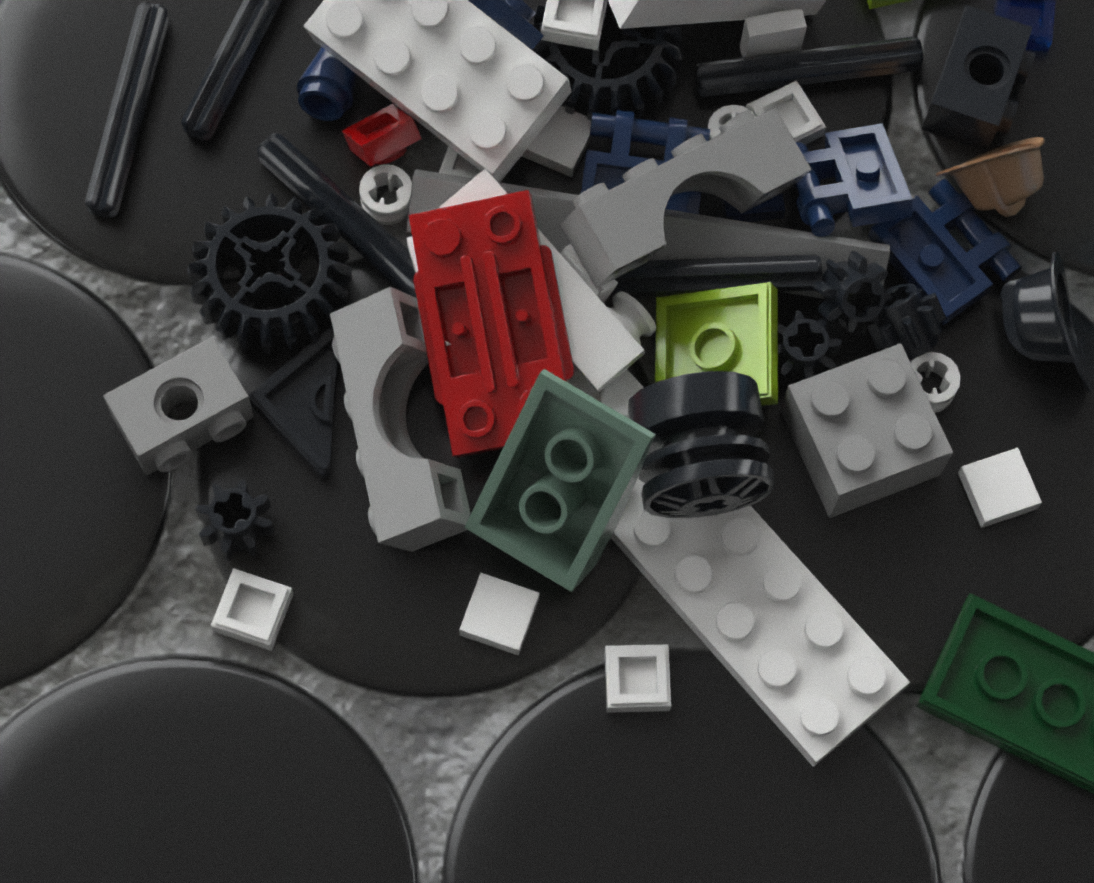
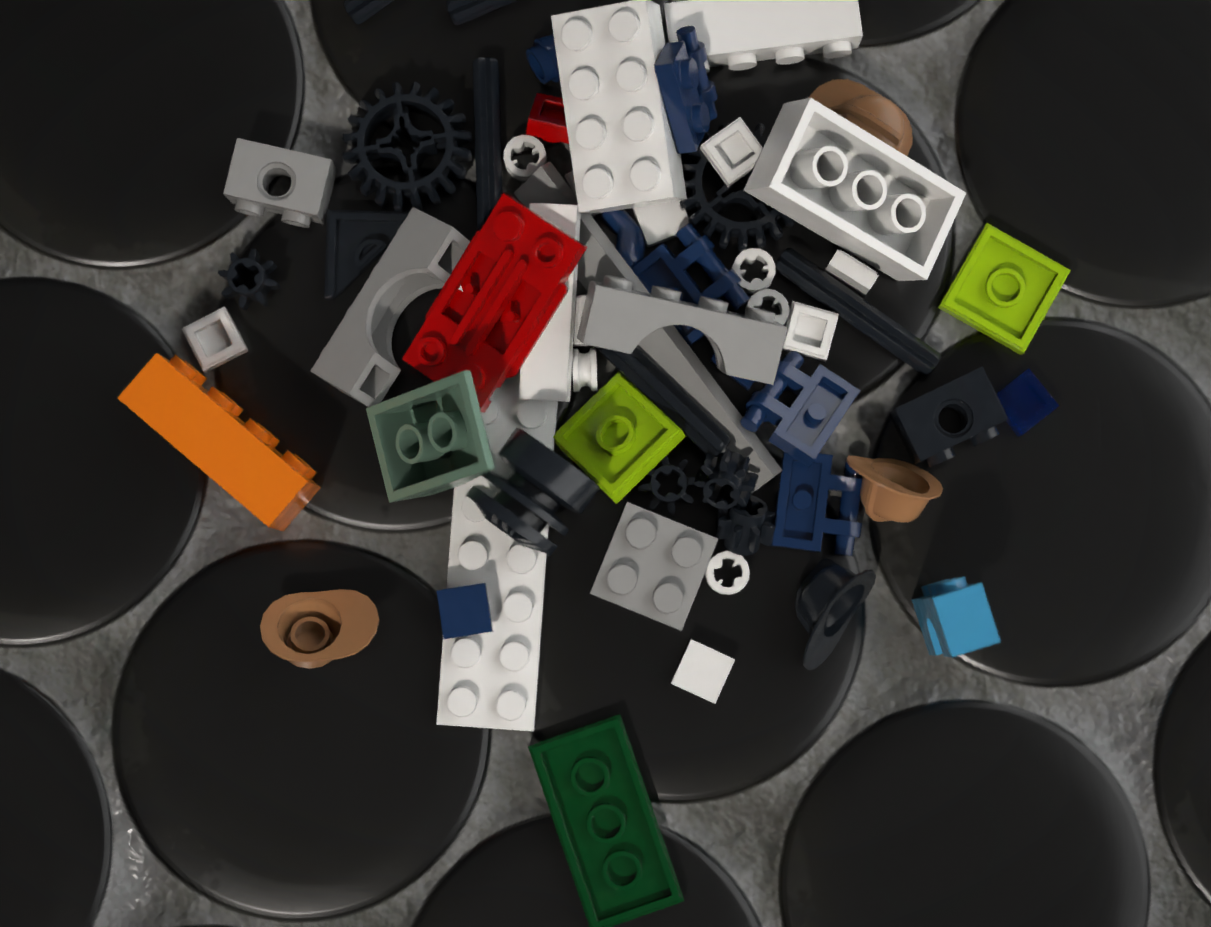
camera: 50 degrees right, 15 degrees up
(356, 679) = (218, 442): none -> orange brick
(499, 614) = (347, 472): white tile -> none
(543, 175) = (629, 235): none -> dark blue arm
(621, 767) = (319, 626): none -> medium nougat piece
(637, 678) = (388, 582): white tile -> none
(690, 94) = (750, 256): none -> white bush
(740, 624) = (464, 610): none -> dark blue tile

